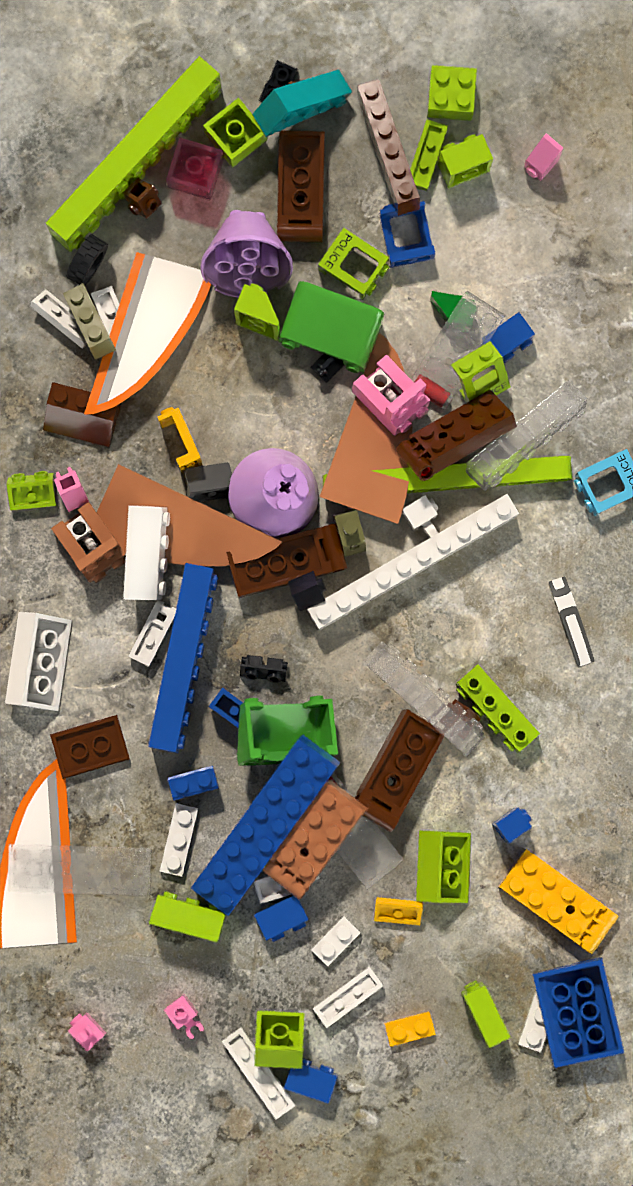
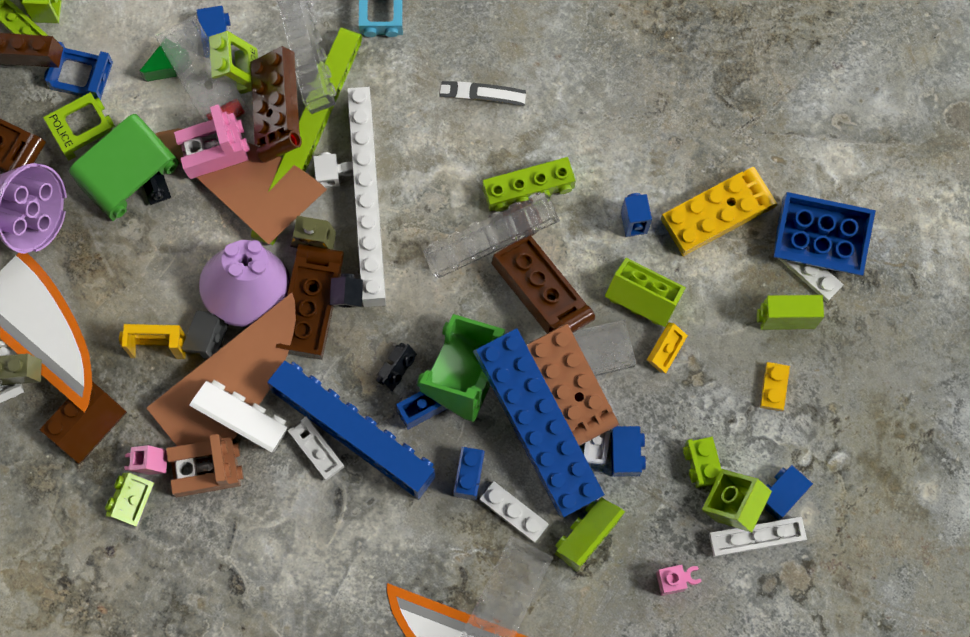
camera: 65 degrees left, 10 degrees down
(38, 661) = (288, 564): white slope -> none
(90, 746) = (390, 554): reddish brown tile -> none
(256, 312) = (78, 218): lime slope -> none
(307, 992) = (703, 461): none -> lime bracket
(335, 941) = (668, 415): white plate -> none
(348, 997) = (723, 426): white plate -> none

